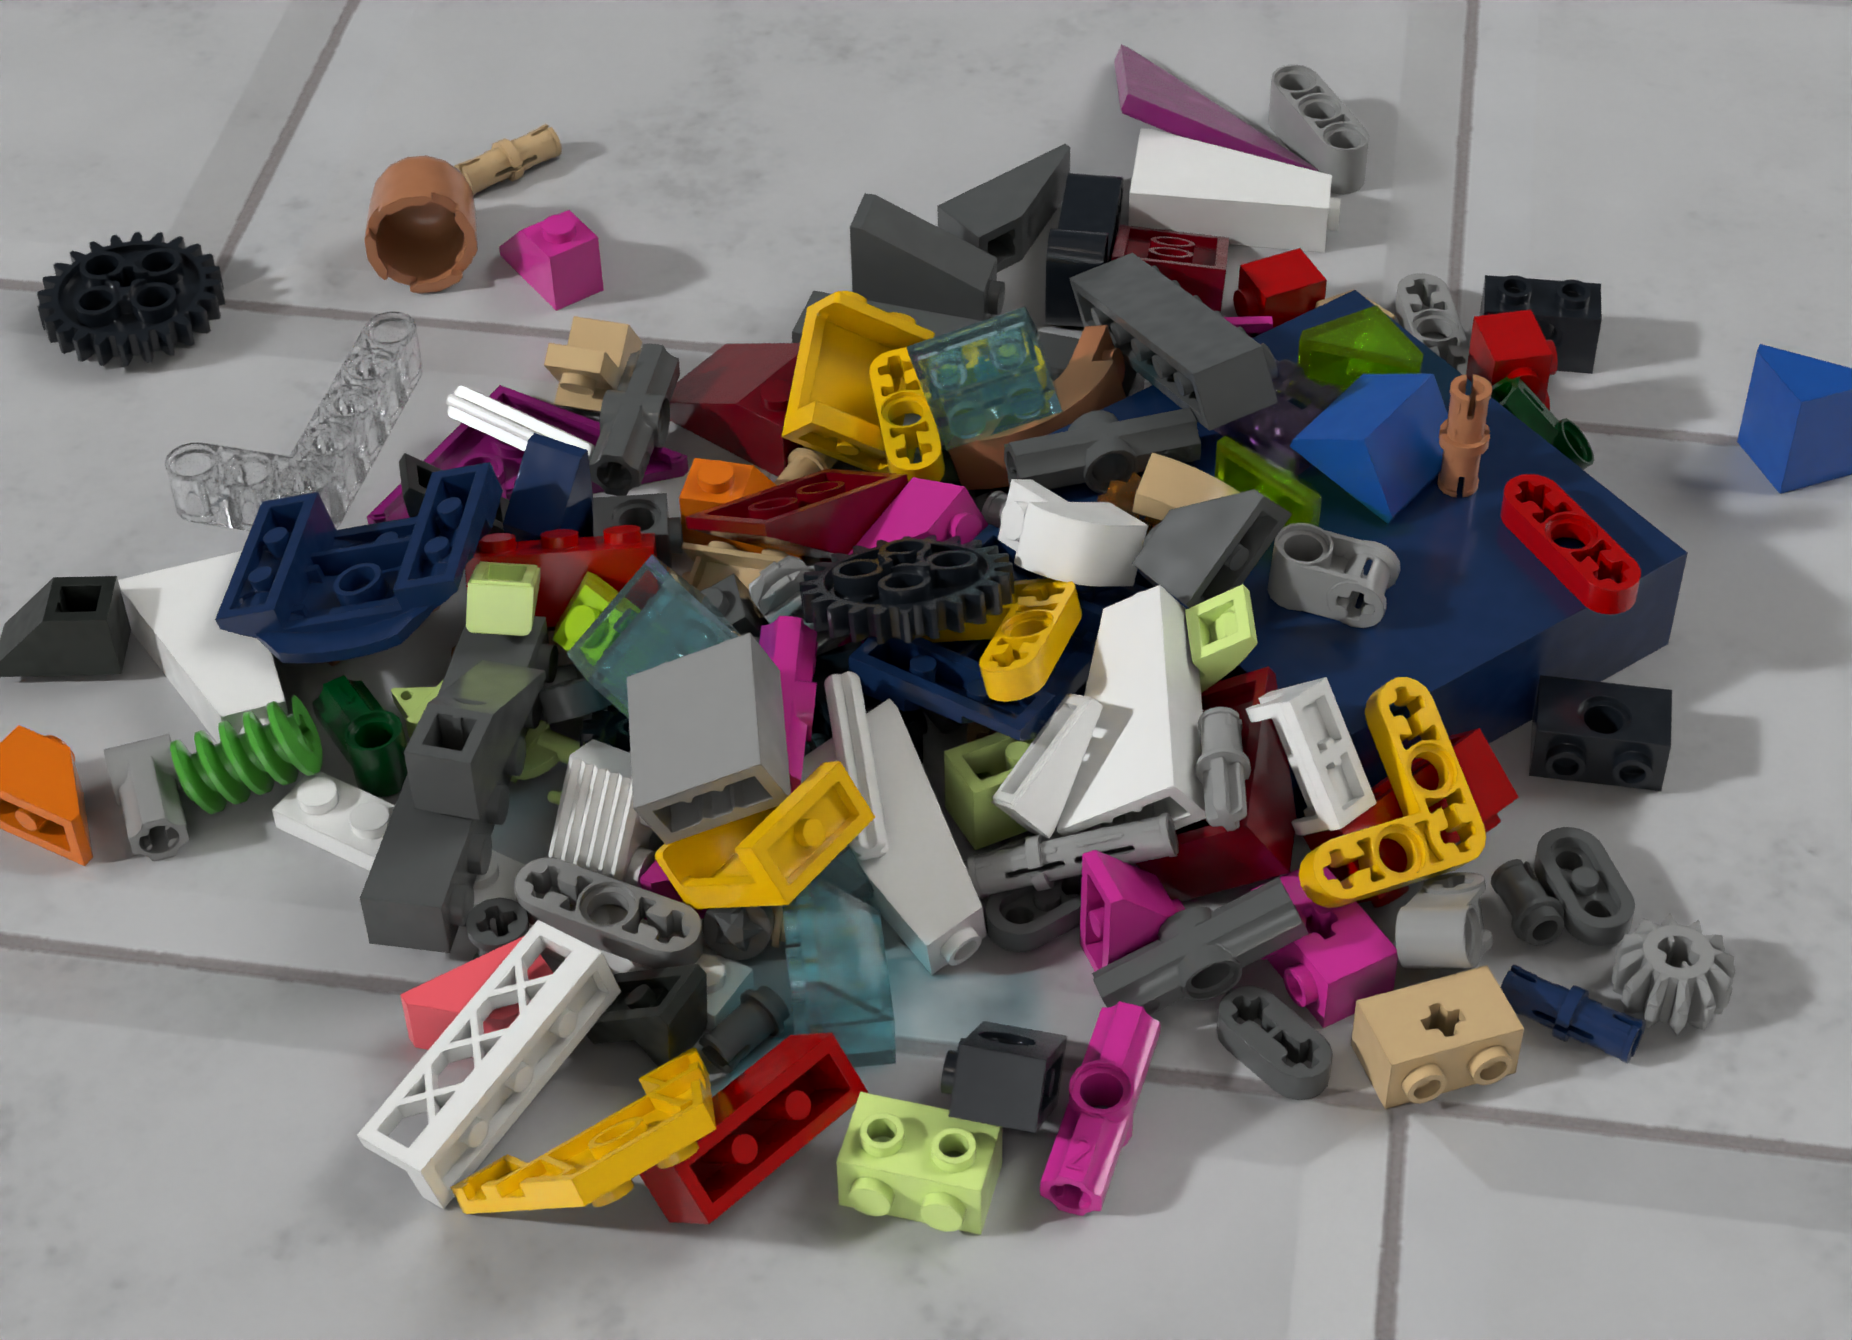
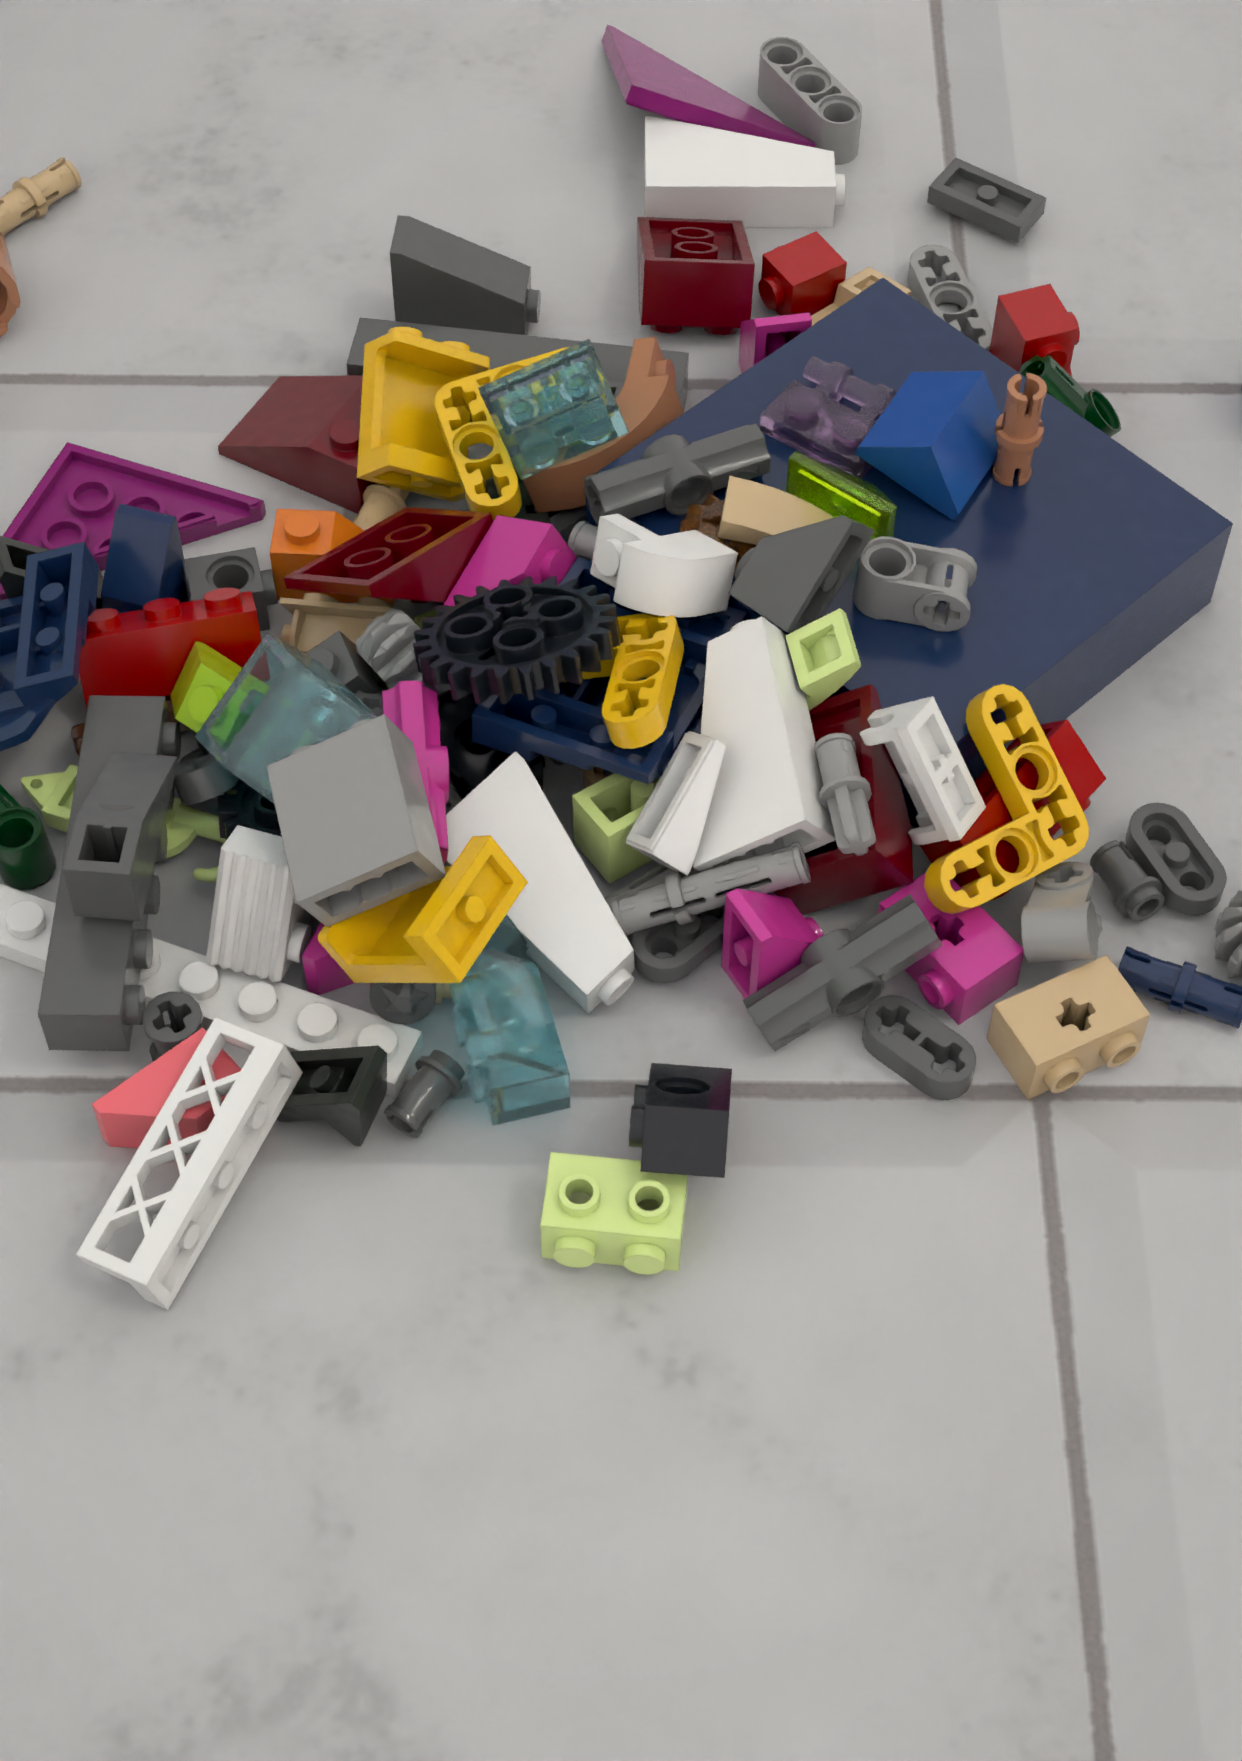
camera: 10 degrees left, 10 degrees up
(502, 598) = (121, 682): yellowish green slope -> none
(504, 421) = (88, 486): white axle -> none
(557, 259) = (100, 303): dark pink slope -> none
(590, 362) = (159, 415): tan brick -> none
(605, 1157) = (330, 1249): yellow wing -> none
(624, 939) = (330, 993): light grey beam -> none
(634, 420) = (209, 470): dark grey piece -> none
(759, 1126) = (450, 1199): red brick -> none
(855, 753) = (492, 809): white axle -> none
(1009, 209) = (530, 211): dark grey slope -> none
(1081, 242) = (610, 249): black beam -> none
(1093, 1137) = (766, 1167): dark pink piece -> none
(1177, 341) = (728, 350): dark grey brick -> none
(1357, 346) = (903, 344): clear neon green slope -> none
(1489, 236) = (986, 200): none -> dark grey plate
(1565, 311) = (1073, 271): black brick -> none
(1574, 568) = (1134, 550): red beam -> none
(1601, 733) = (1168, 703): black brick -> none

